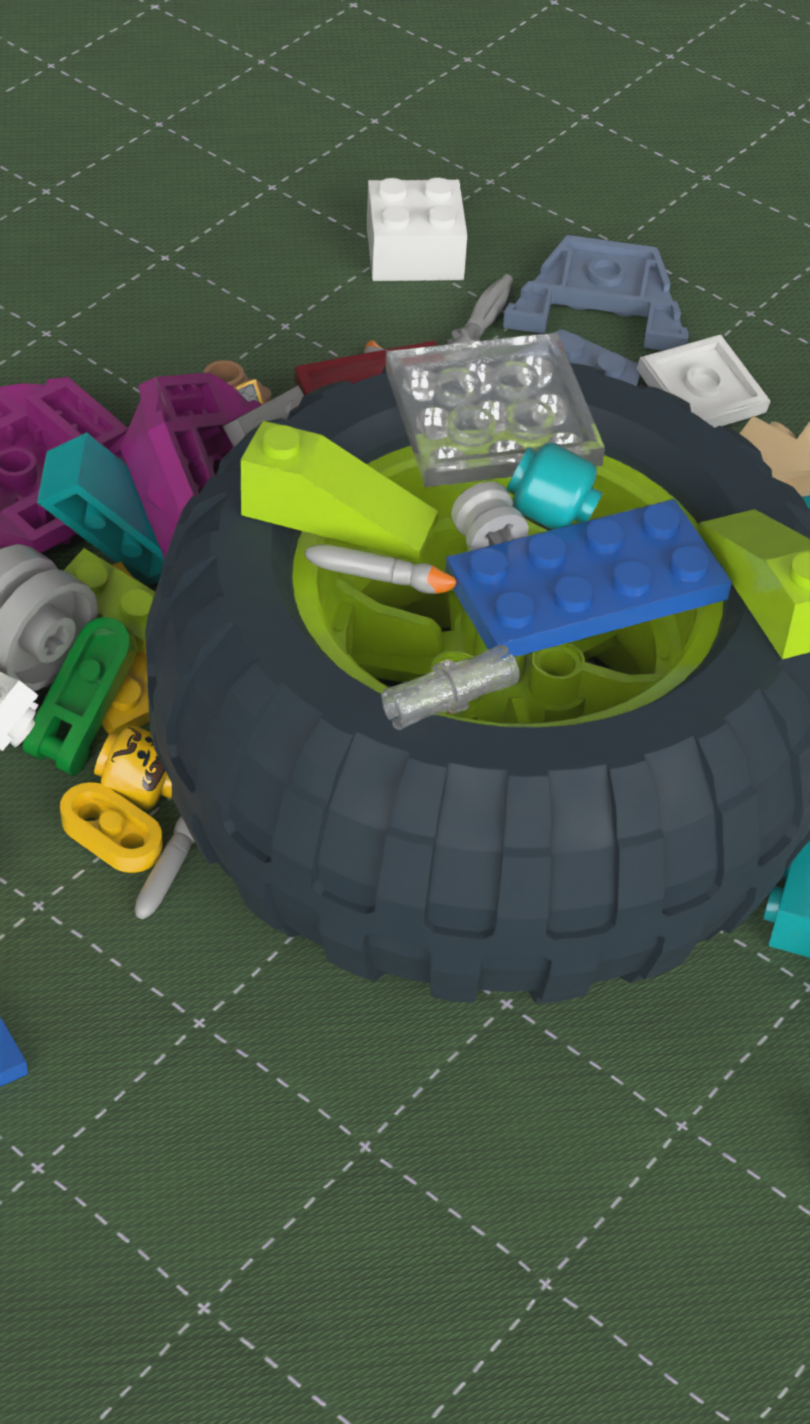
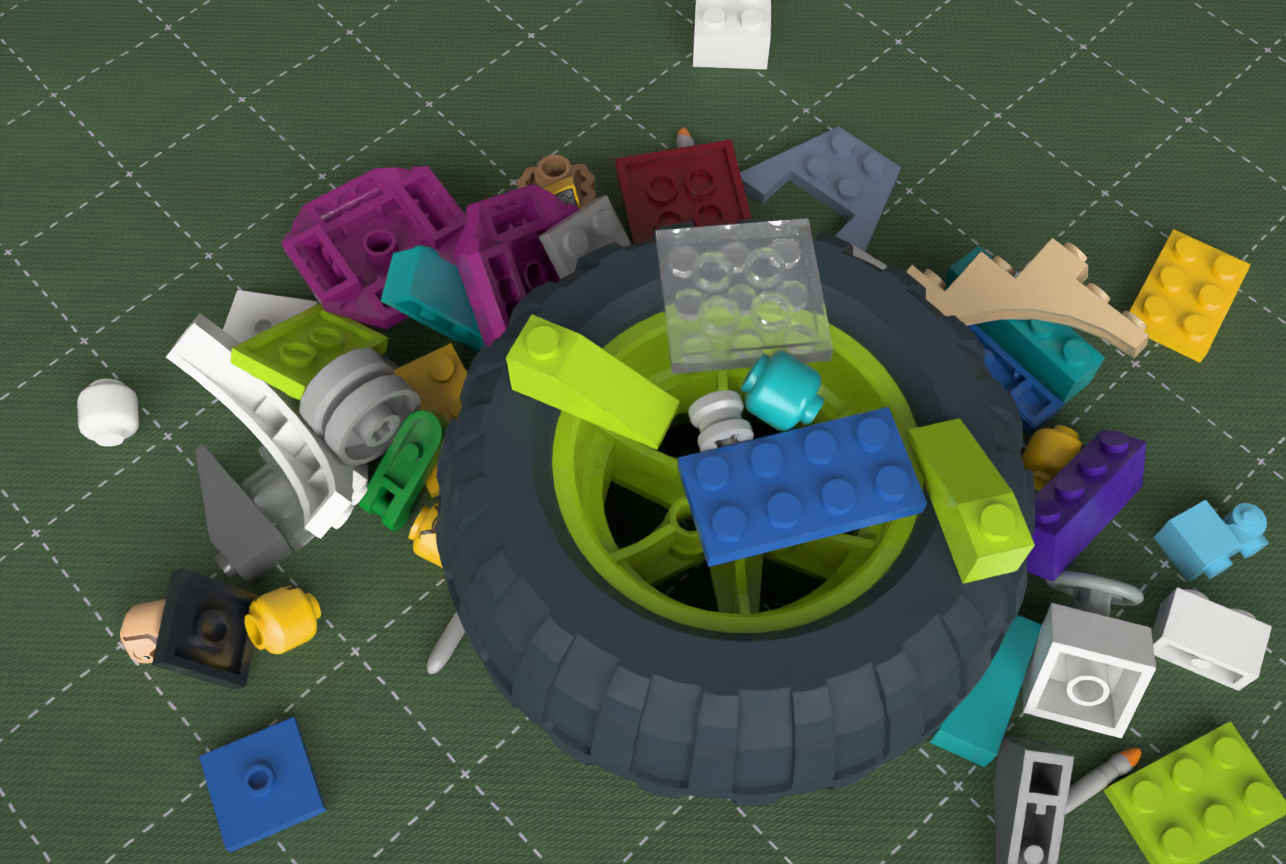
camera: 10 degrees right, 15 degrees up
(115, 592) = (432, 378): lime plate -> none
(116, 828) = (418, 591): yellow plate -> none
(421, 576) = (654, 473): light grey piece -> none
(450, 686) = (662, 600): clear pin -> none
(484, 312) = (760, 132): light grey piece -> none
(604, 278) = (882, 78): sand blue wing -> none
(707, 378) = (948, 189): white plate -> none

